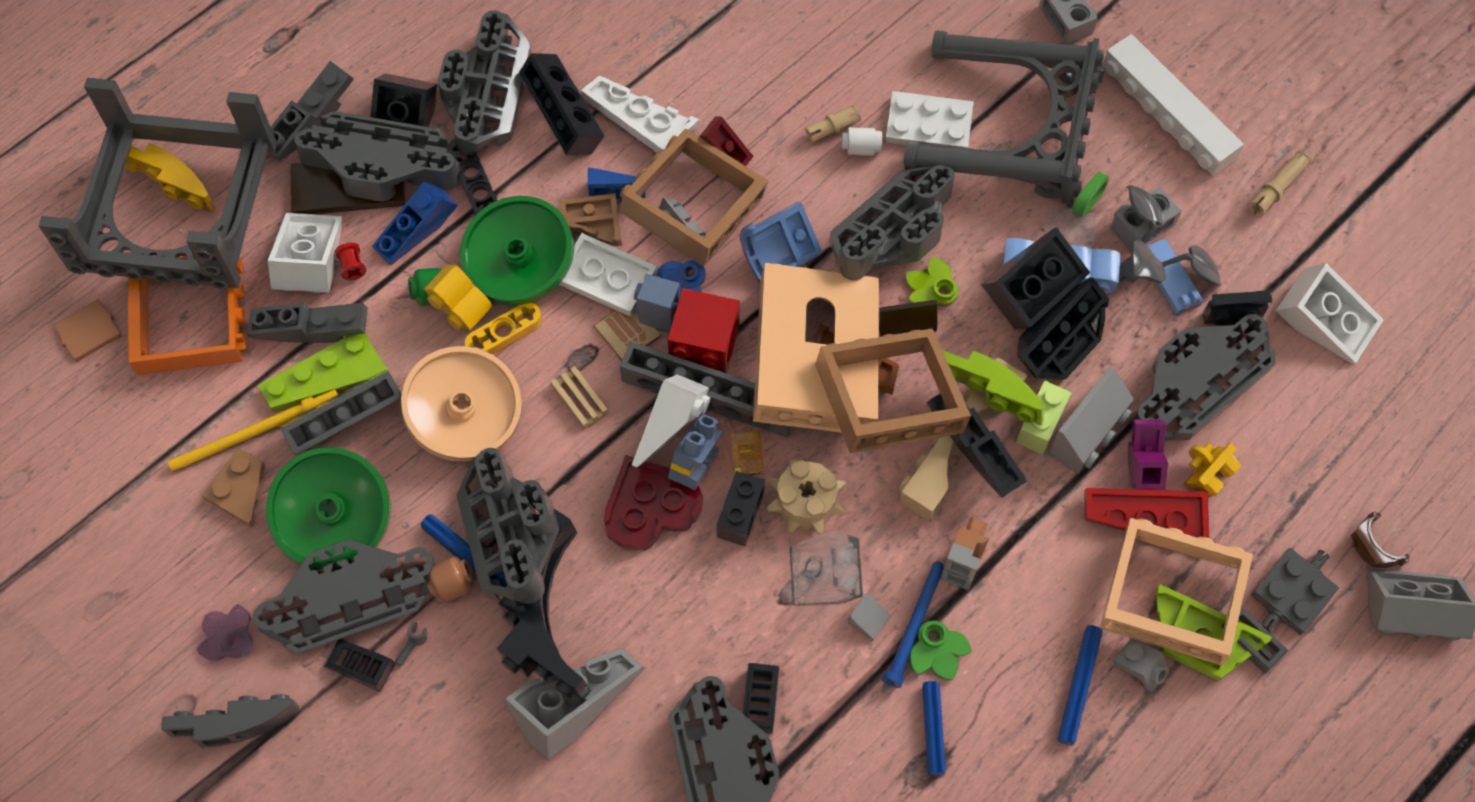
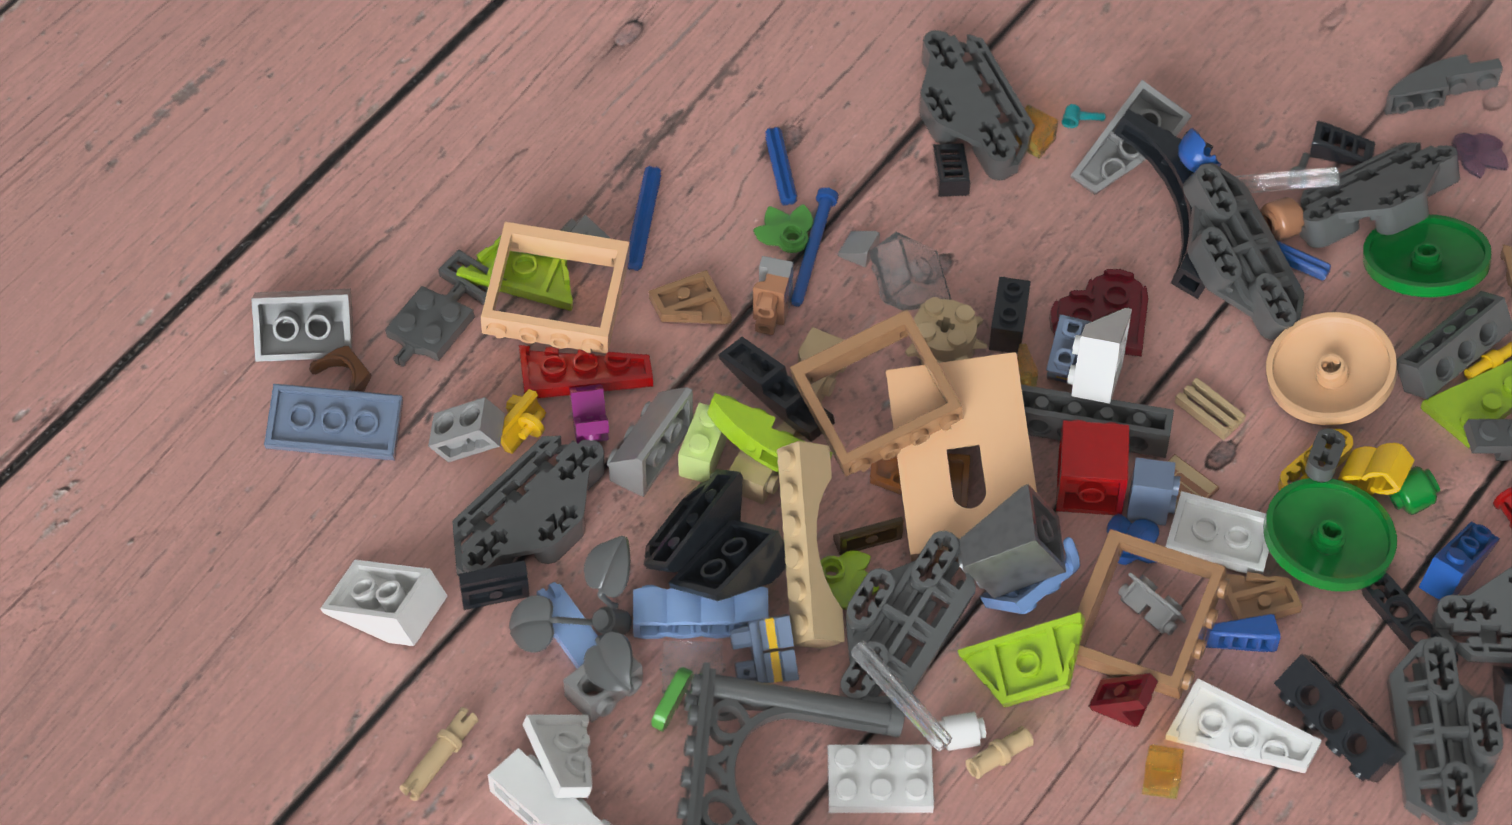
camera: 170 degrees right, 10 degrees down
(440, 621) = (1291, 180): none -> clear axle
(494, 316) = (1329, 456): none -> dark grey beam
(519, 618) = (1193, 151): none -> blue hair
(622, 745) = (1074, 114): none -> teal hand
(659, 725) = (1044, 131): none -> clear yellow panel
(708, 91) = (1163, 771): none -> clear yellow panel
(795, 231) = (1014, 545): none -> flat silver slope
(798, 180) = (1029, 660): none -> lime wing
(909, 153) = (901, 696): none -> clear axle
(968, 321) = (813, 609): none -> tan arch
(1011, 215) = (761, 636): none -> sand blue hips
(1041, 576) = (690, 301): none -> medium nougat wing
(1184, 154) = (562, 751): none -> white wing
(1263, 451) = (466, 429): none -> light grey brick
(1384, 493) = (333, 422): none -> sand blue tile

